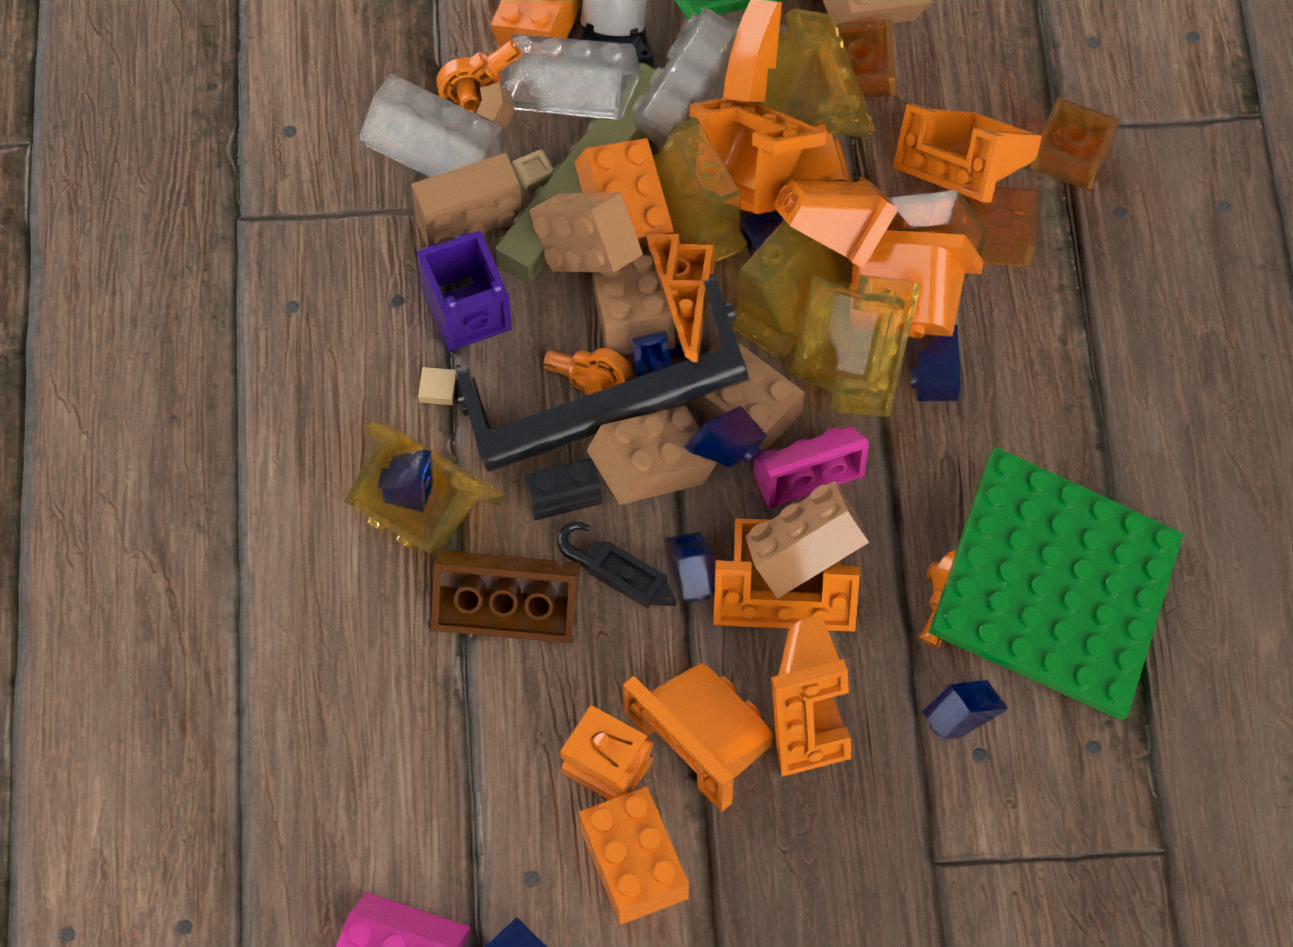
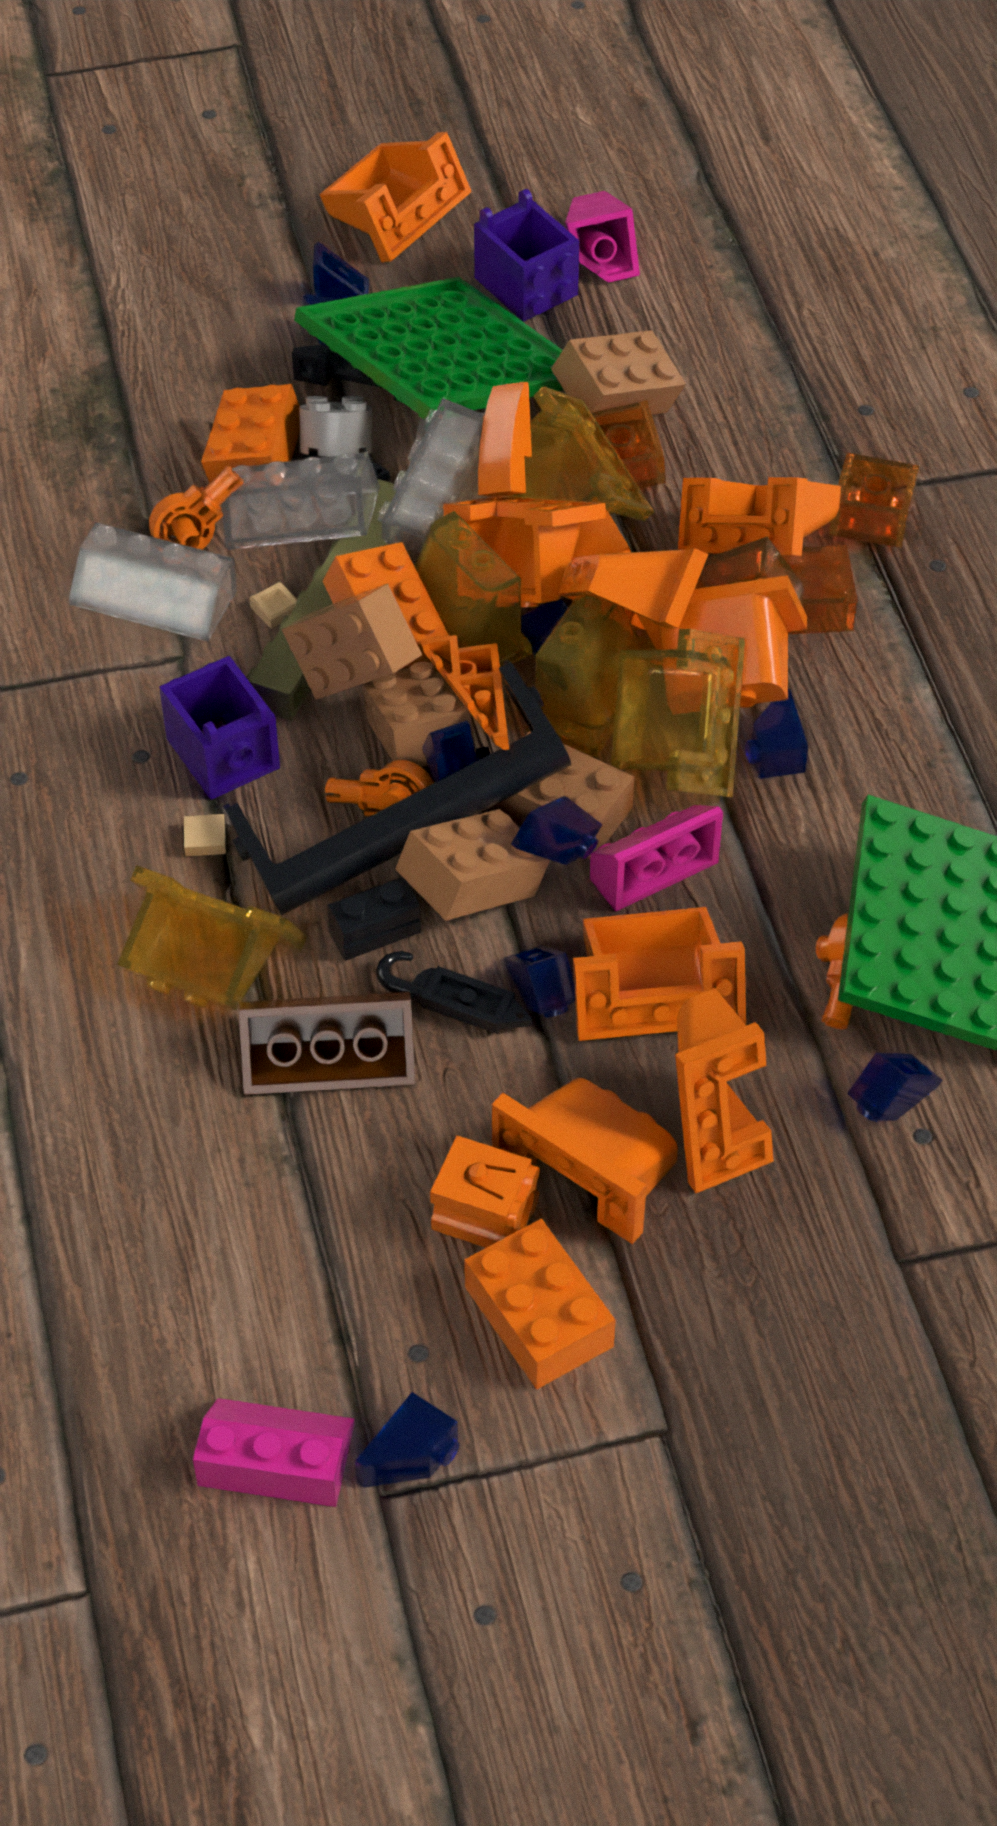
camera: 10 degrees left, 10 degrees down
(408, 480) = (190, 930): clear blue slope -> none
(467, 200) = (206, 629): medium nougat brick -> none
(496, 105) = (221, 537): medium nougat piece -> none
(806, 539) = (673, 920): medium nougat brick -> none

